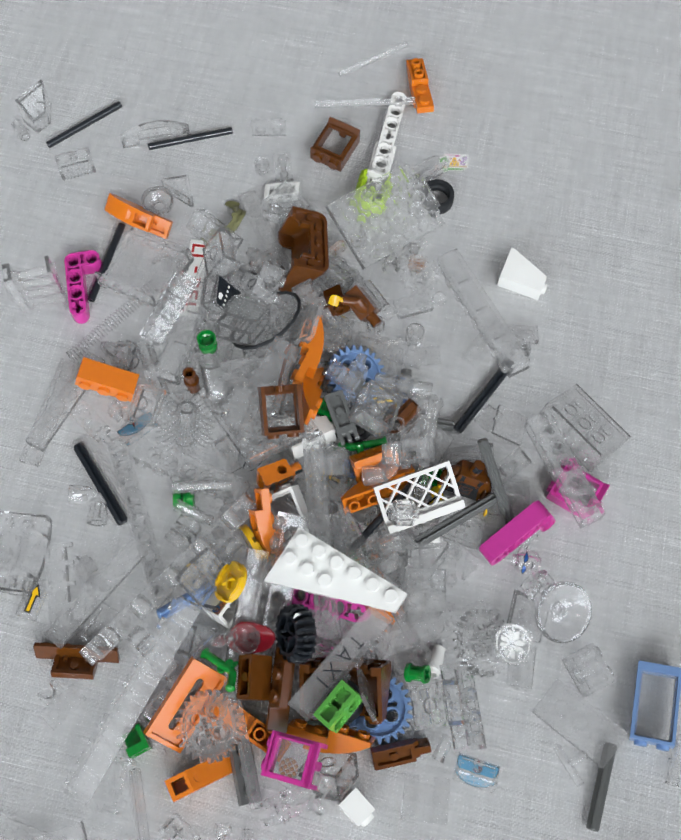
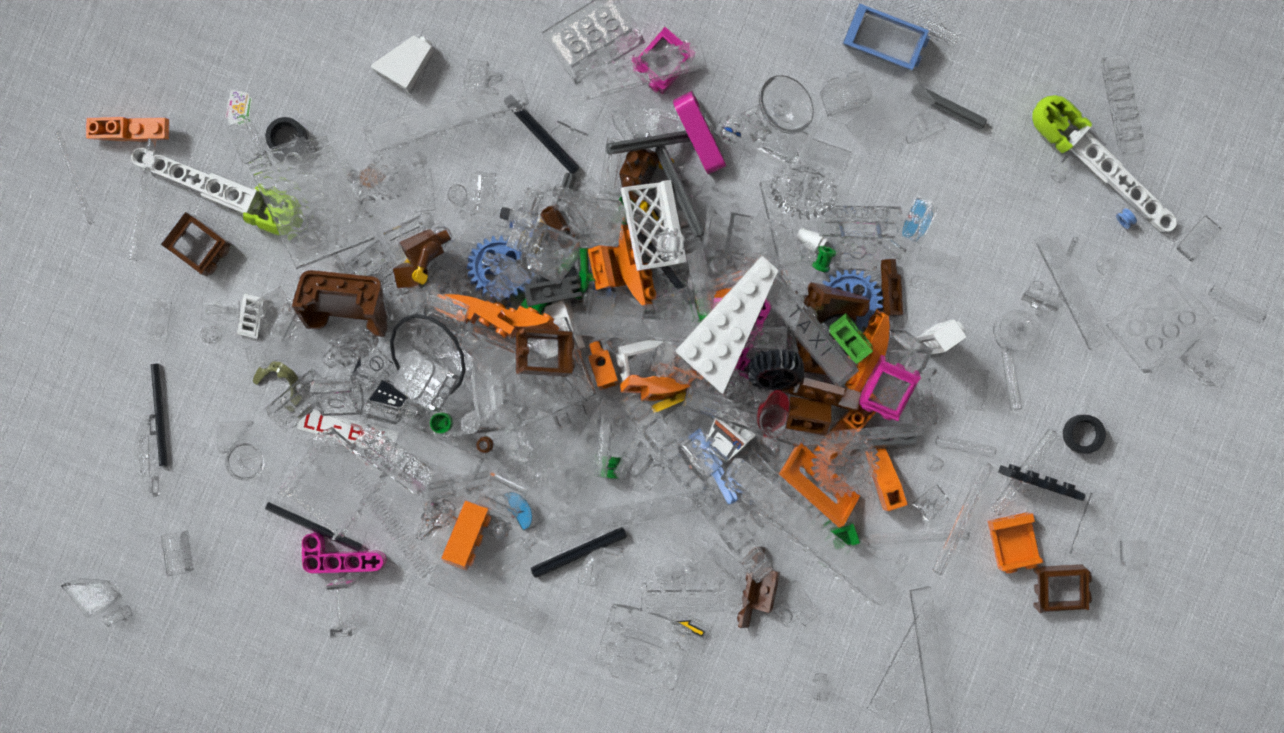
camera: 80 degrees left, 20 degrees up
(84, 124) = (119, 539): black piece -> none
(137, 216) = (263, 488): orange slope -> none
(222, 666) = (793, 444): green piece -> none
(230, 582) = (714, 427): yellow tile -> none
(268, 274) = (392, 358): clear brick -> none
(366, 695) = (844, 311): clear piece -> none
(386, 468) = (620, 252): clear cylinder -> none
(513, 644) = (810, 160): clear dish -> none

